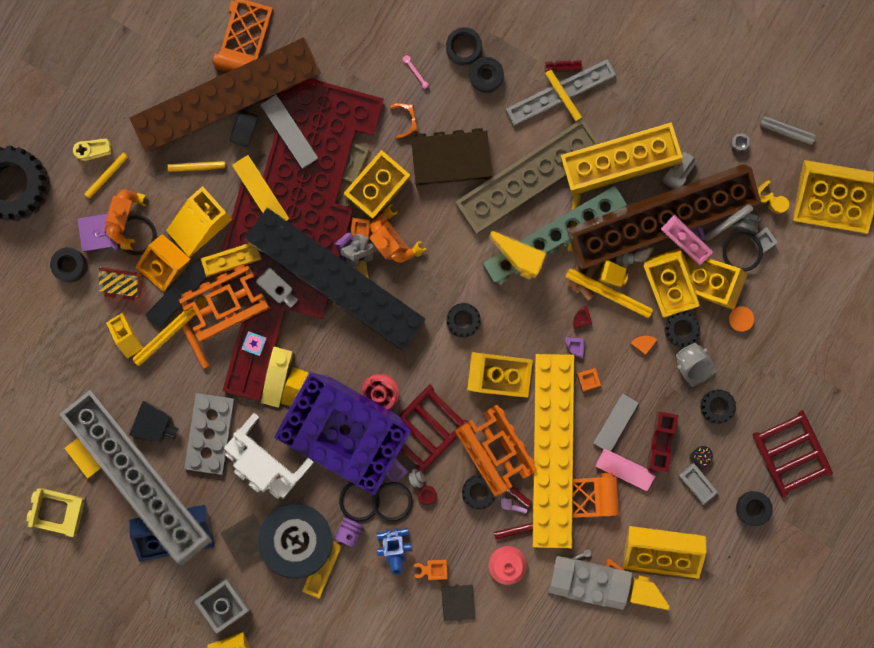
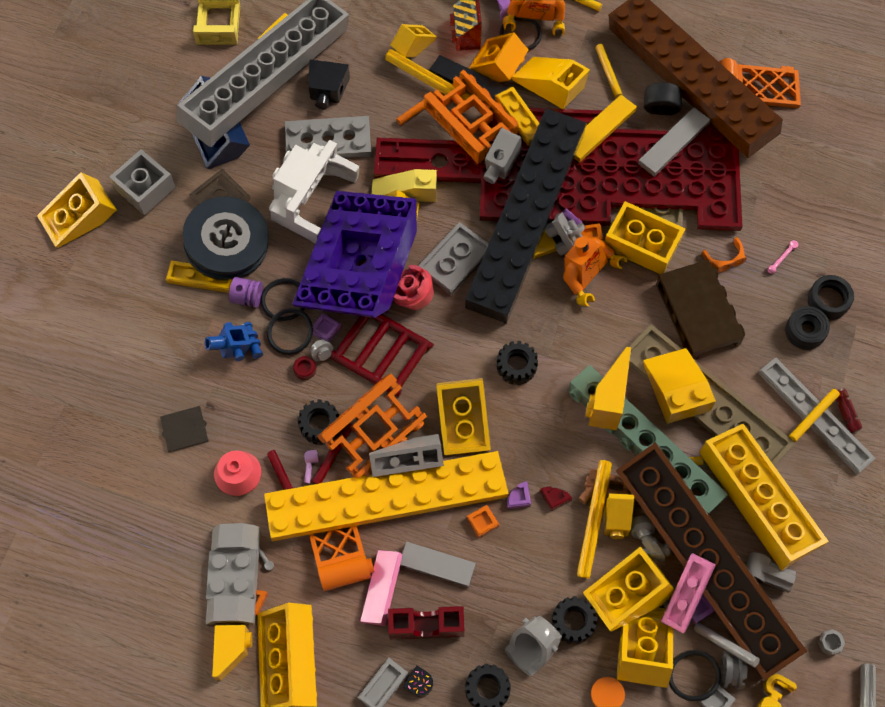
camera: 80 degrees right, 20 degrees down
(254, 343) = (435, 154): tile -> none
(354, 348) = (455, 258): none -> light grey tile
(435, 569) = (219, 392): orange plate -> none
(515, 196) = (679, 385): none -> yellow slope
(527, 426) = (407, 456): none -> light grey slope
(643, 343) = (544, 577): orange tile -> none

